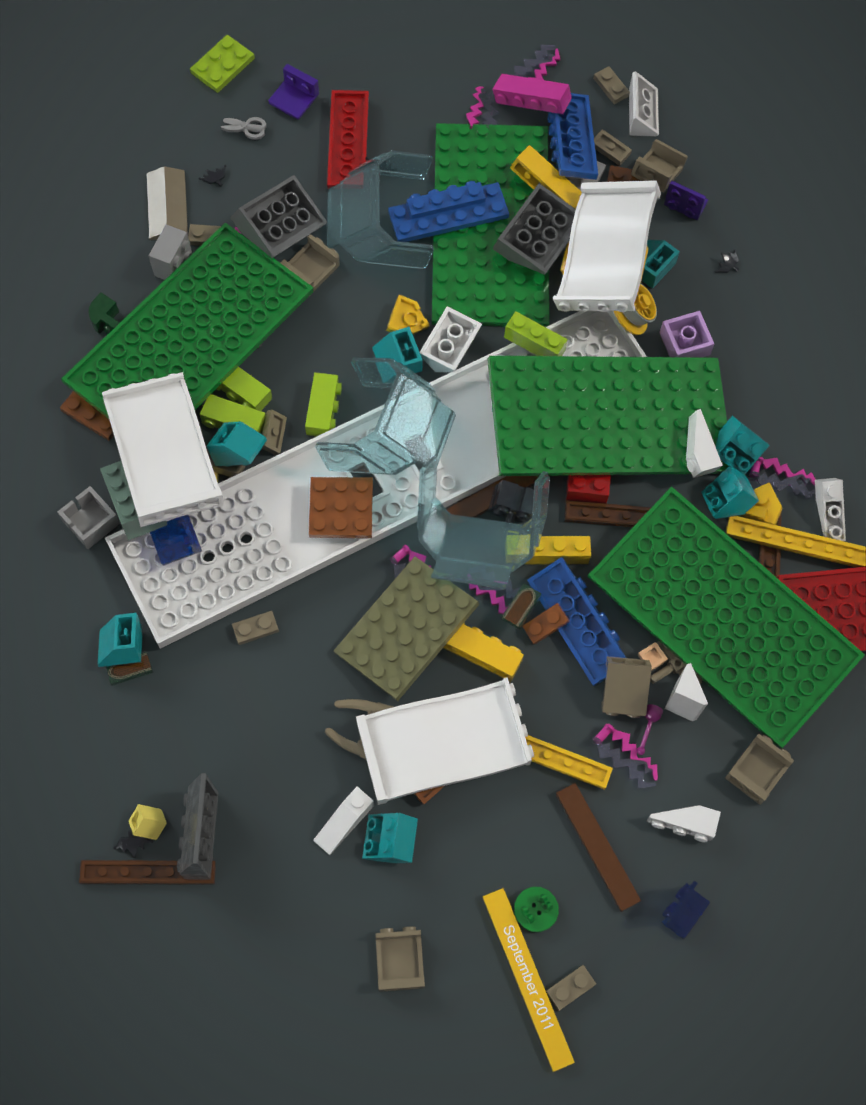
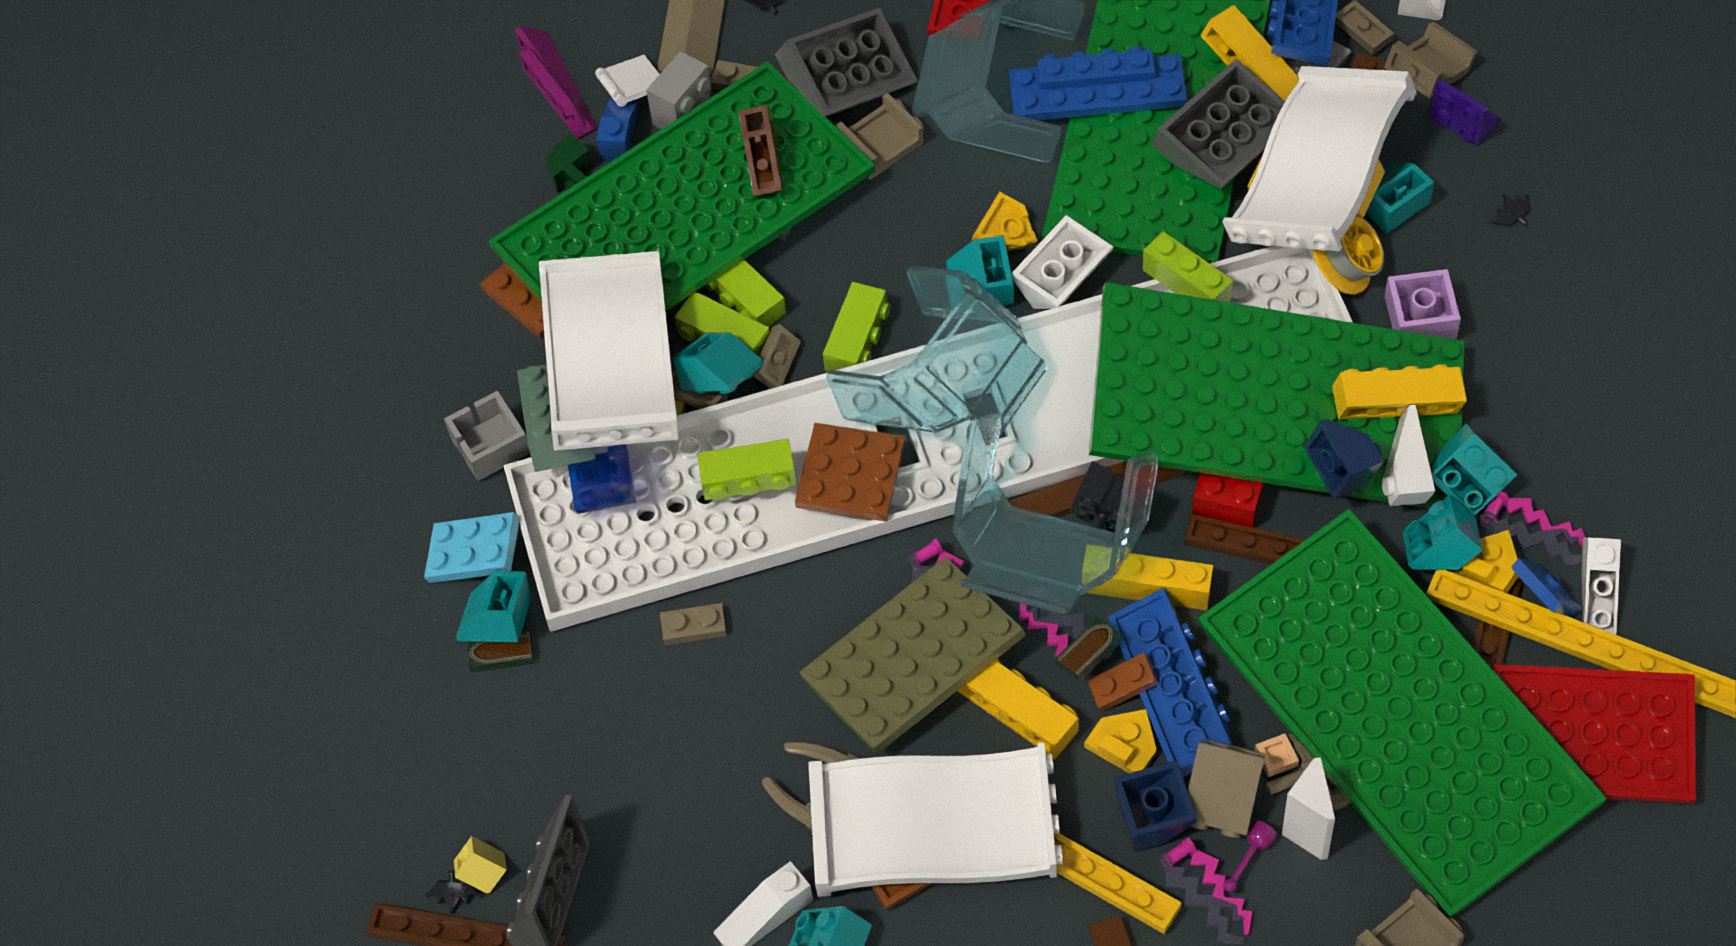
camera: 20 degrees right, 10 degrees down
(79, 253) = (552, 78): none -> magenta wedge
(94, 599) = (471, 547): none -> medium azure plate
(131, 279) = (617, 129): none -> blue slope
(132, 246) = (628, 79): none -> white piece
(236, 289) = (761, 149): none -> reddish brown slope
(272, 517) = (746, 469): none -> lime brick
(554, 663) = (1124, 740): none -> yellow plate
(584, 705) = (1154, 804): none -> dark blue slope
(662, 452) = (1343, 457): none -> dark blue slope
(685, 401) = (1390, 392): none -> yellow brick
(800, 517) = (1546, 587): none -> blue plate

